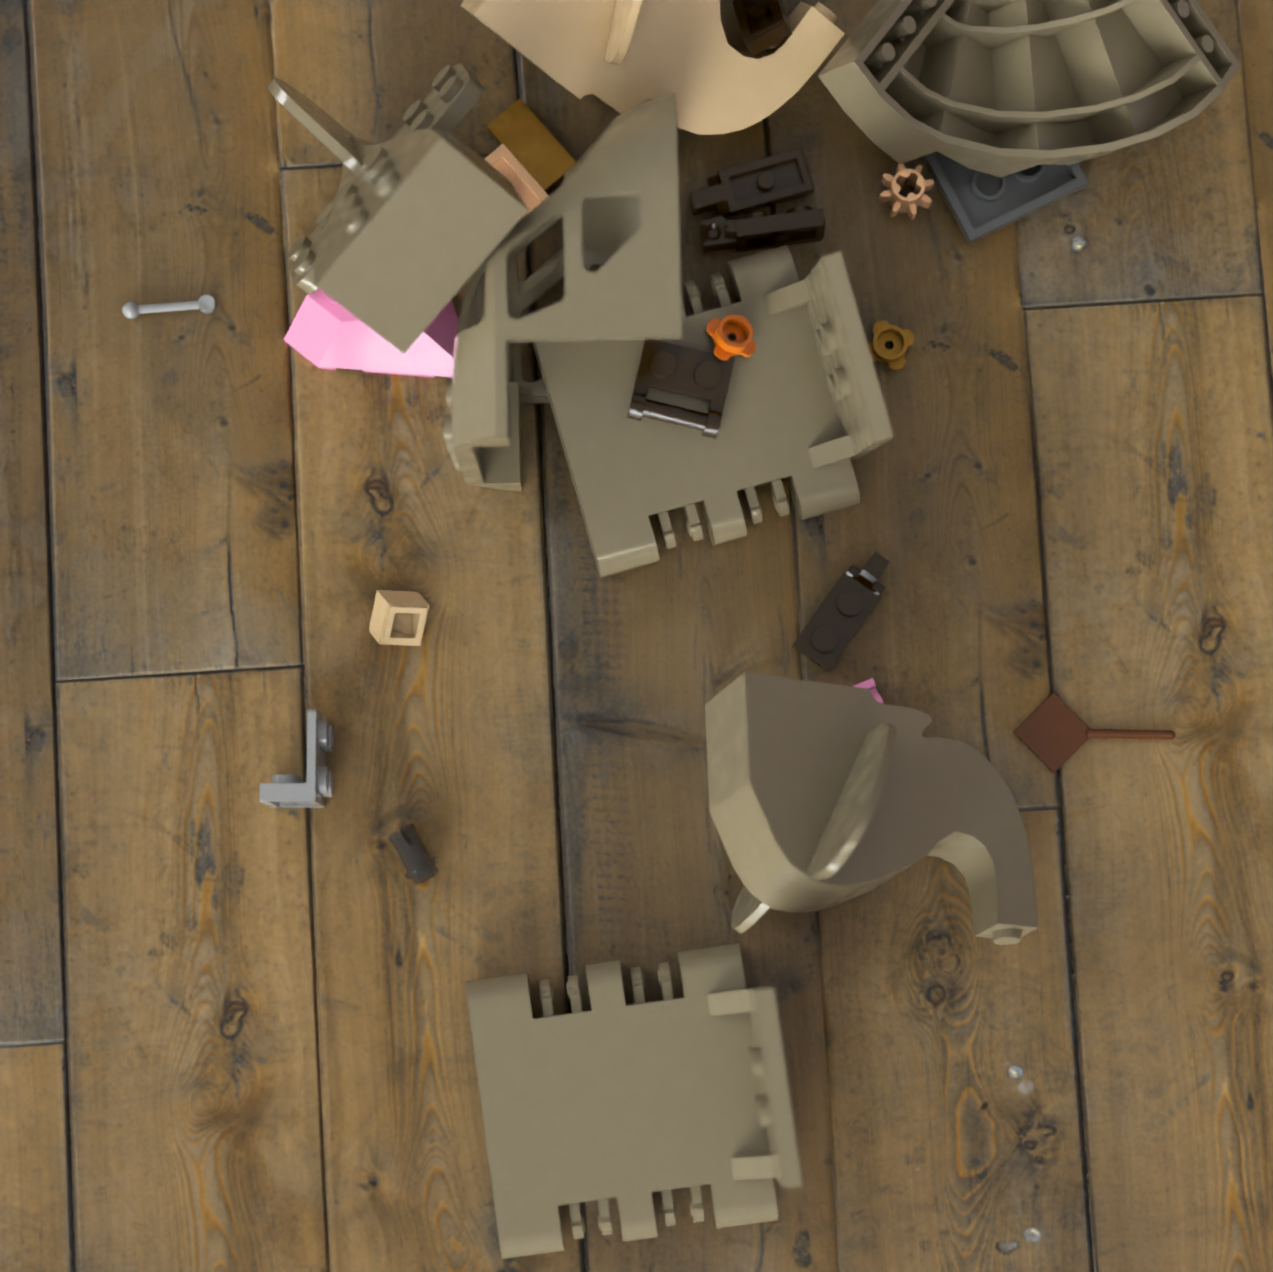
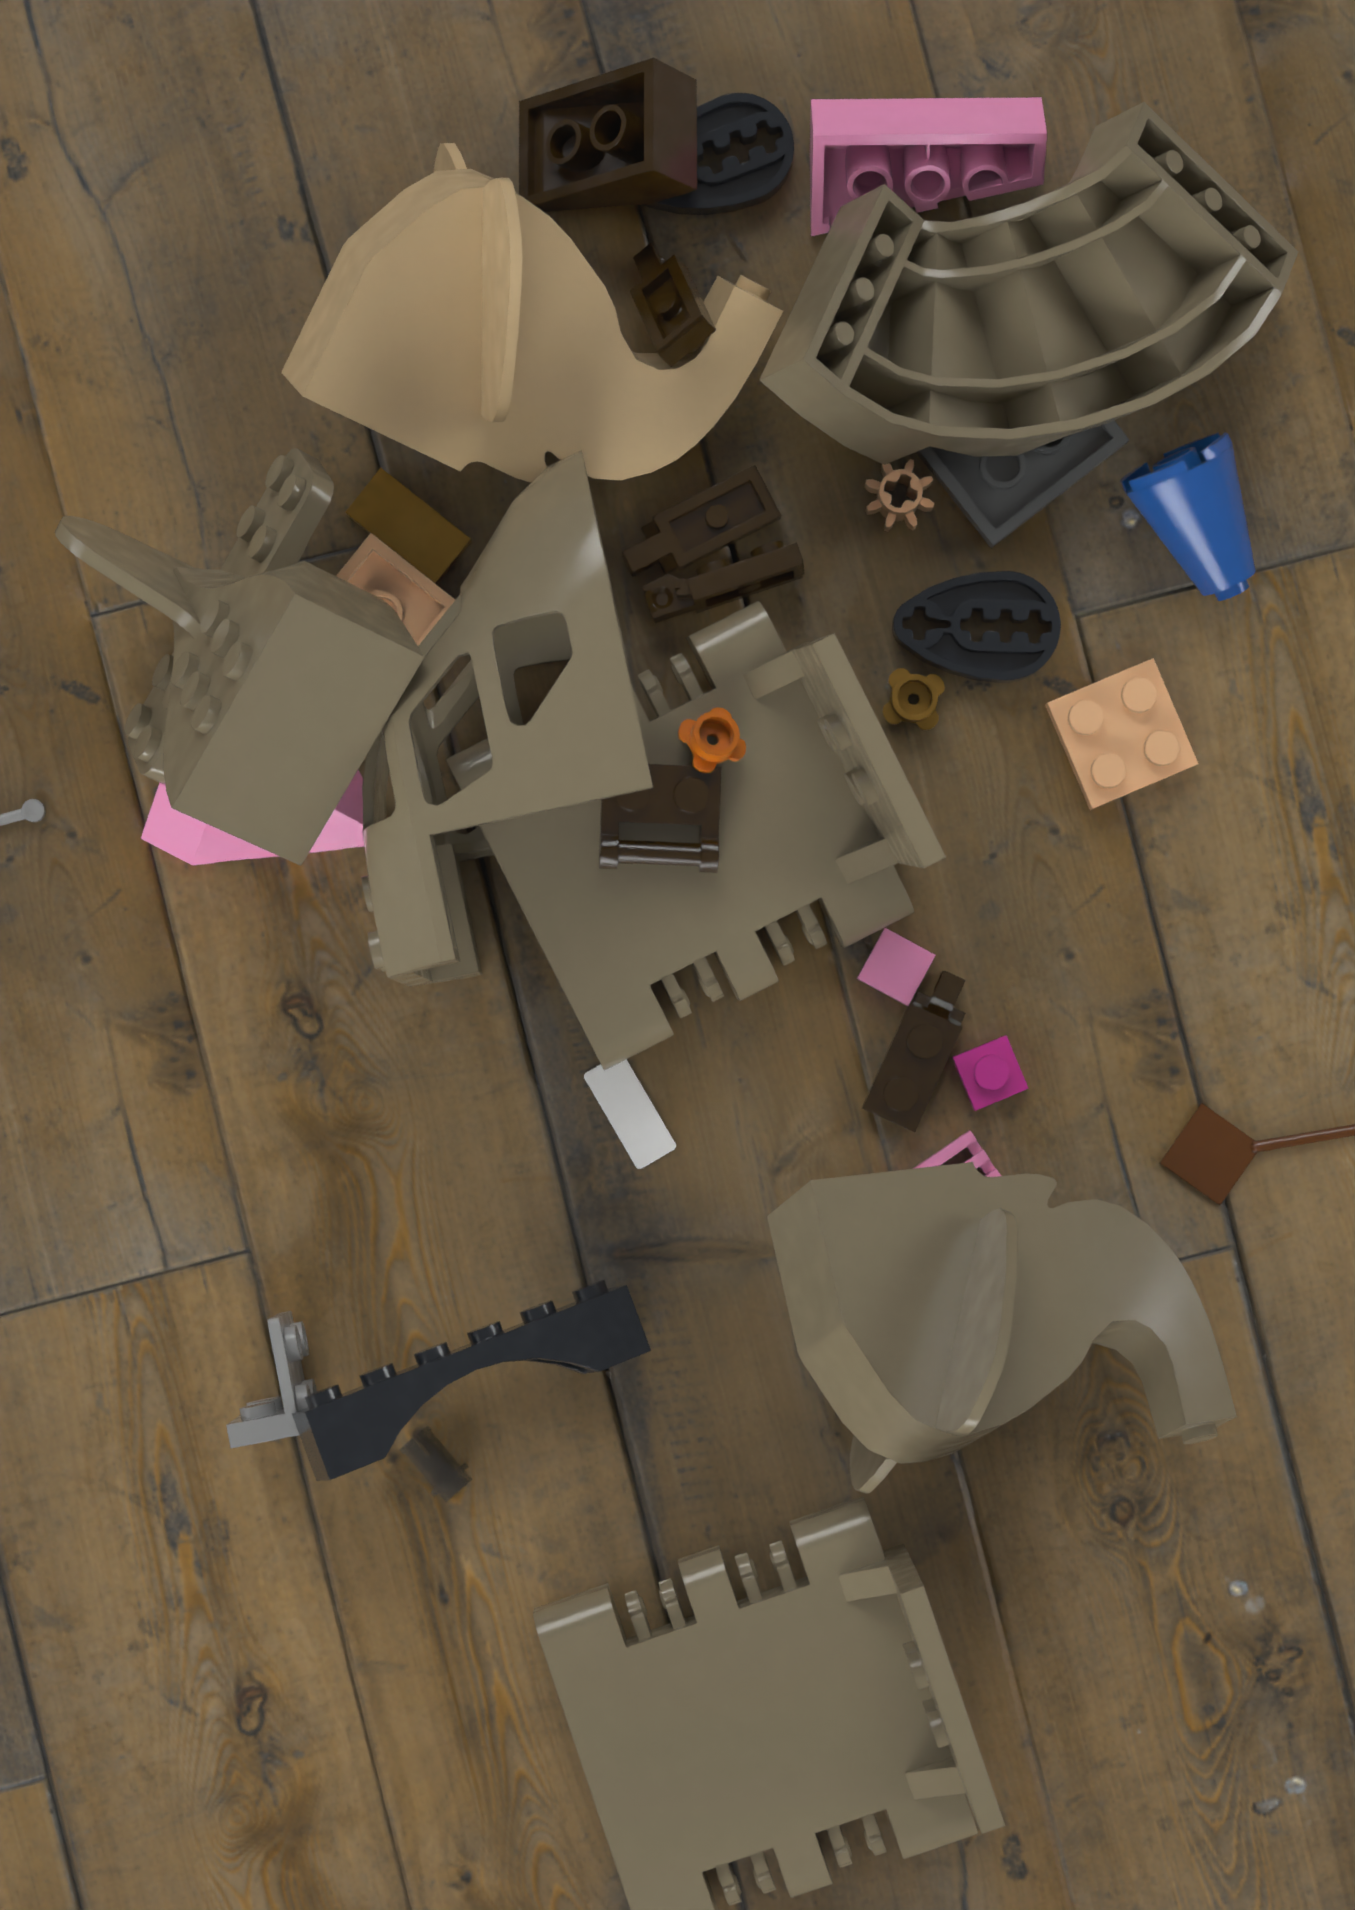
camera: 10 degrees left, 5 degrees up
(398, 618) = (358, 1168): tan slope -> none
(544, 776) = (362, 1424): none -> black arch
(614, 616) = (630, 1113): none -> white sticker
(838, 543) = (896, 966): none -> bright pink tile
(895, 637) = (990, 1072): none -> dark pink plate
(962, 279) = (990, 594): none -> black piece
(1042, 401) = (1121, 734): none -> light nougat plate
(1131, 246) = (1198, 513): none -> blue cone

